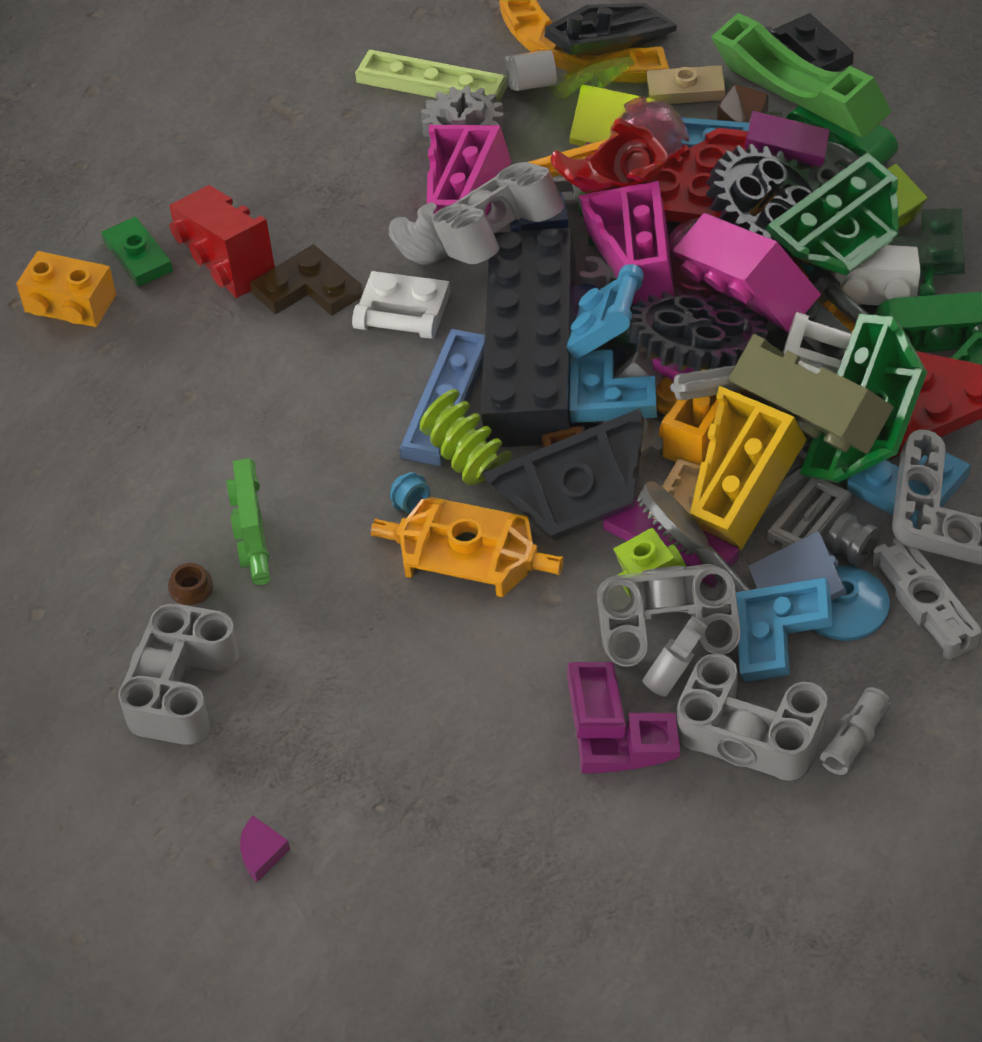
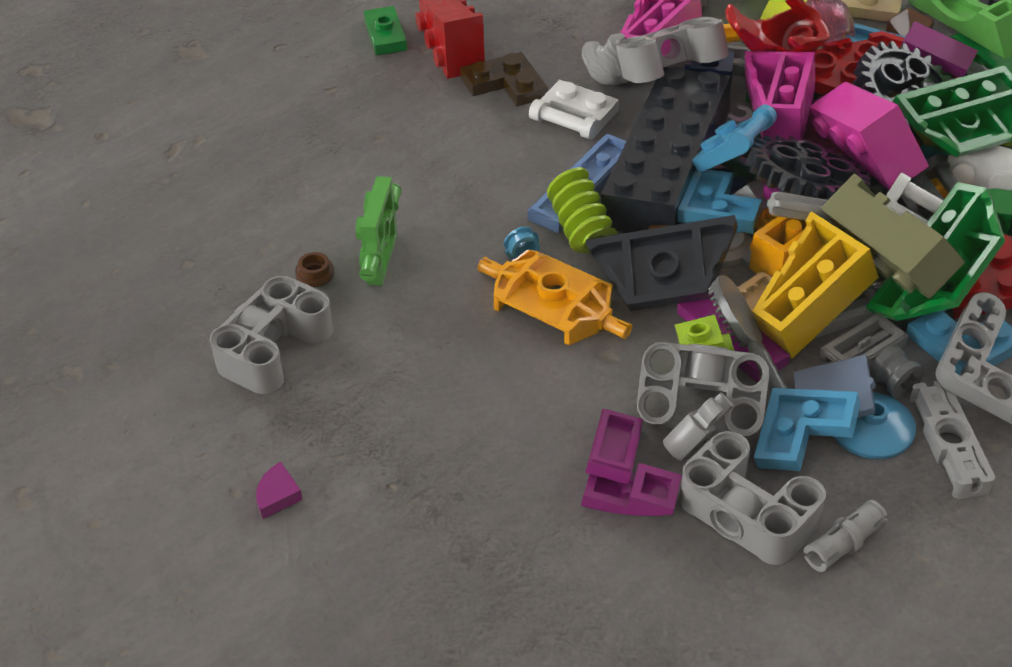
camera: 15 degrees right, 5 degrees down
(66, 289) = (318, 41): light orange brick -> none

